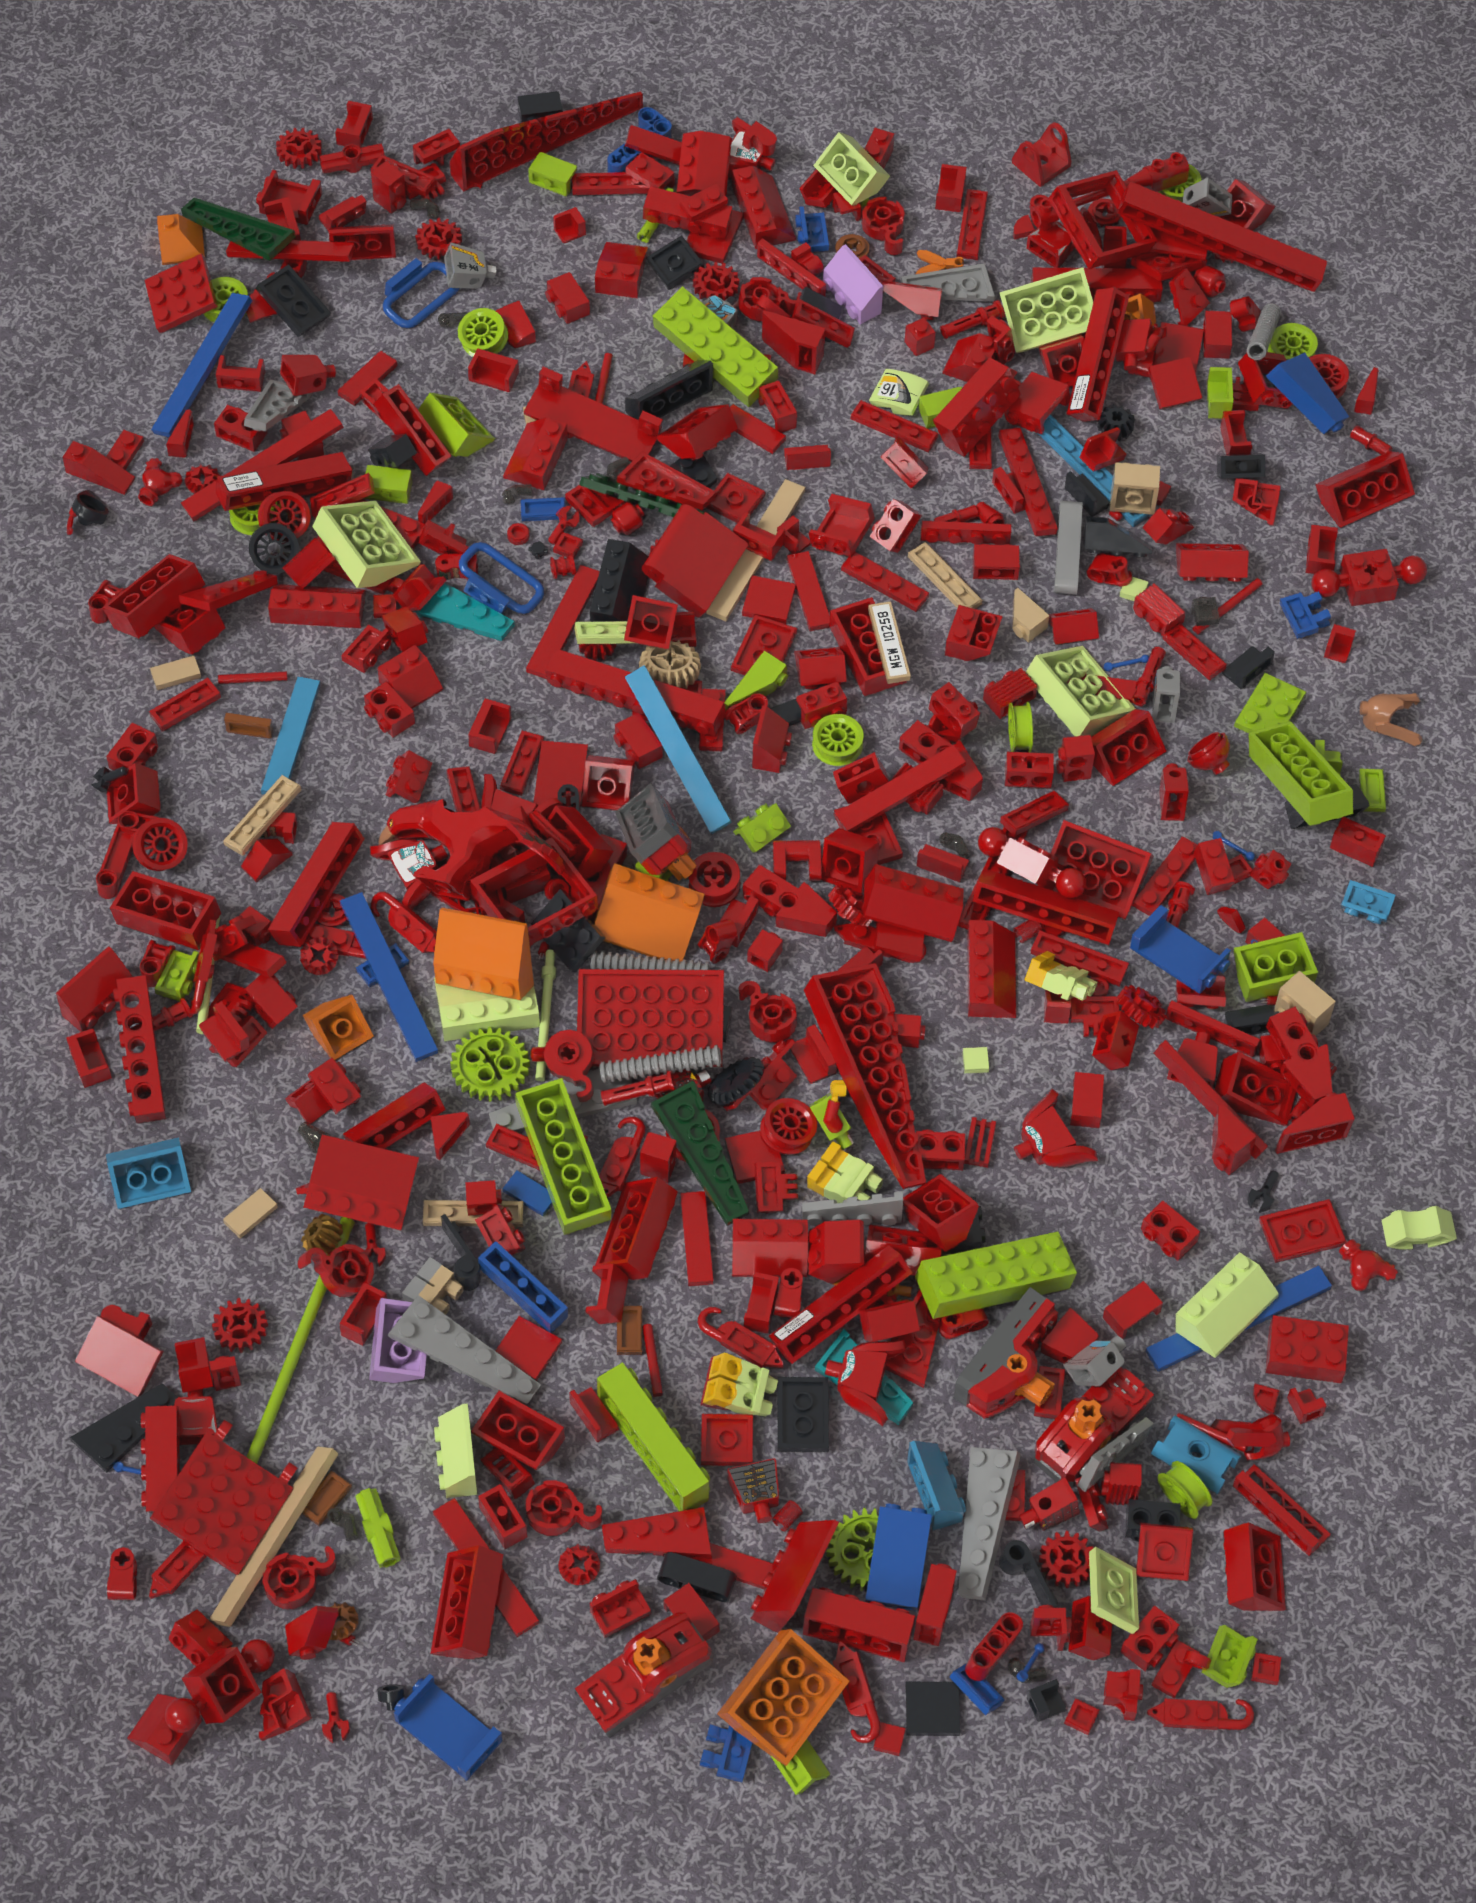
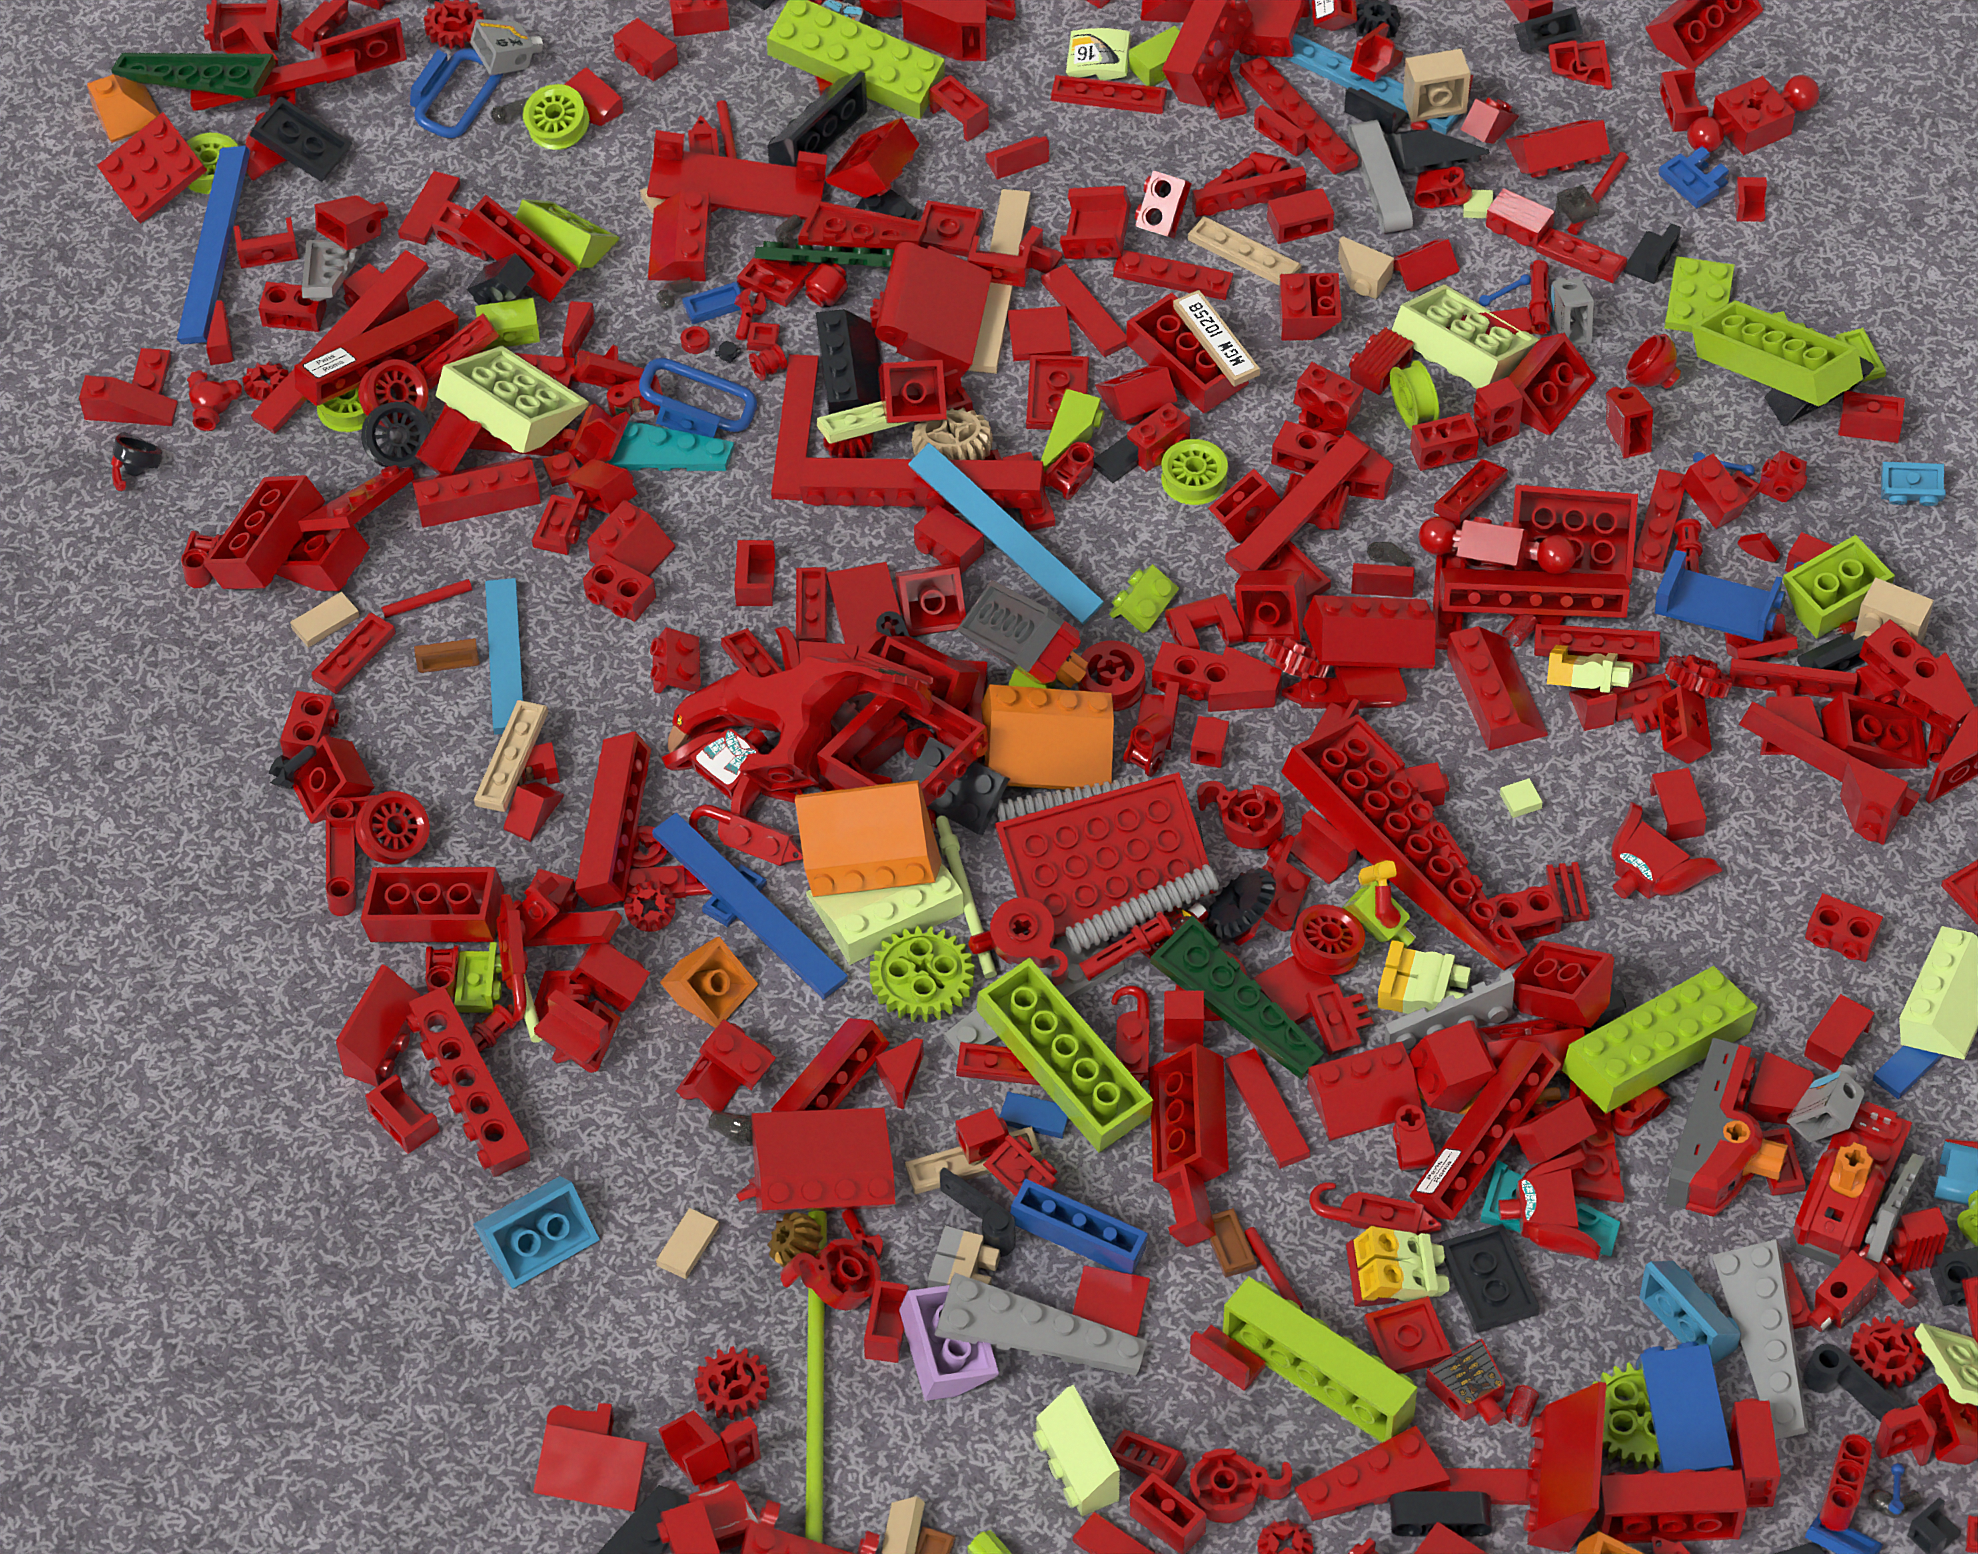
camera: 15 degrees left, 5 degrees down
(493, 370) = (586, 156): red panel -> none
(519, 1431) = (1147, 1401): red slope -> none
(756, 430) = (945, 143): red tile -> none
(761, 1303) = (1382, 1158): red panel -> none
(770, 741) = (1115, 495): red slope -> none
(905, 463) = (1142, 131): panel -> none
(1264, 1192) = (1934, 852): black bar -> none
(1379, 711) = (1833, 265): nougat piece -> none

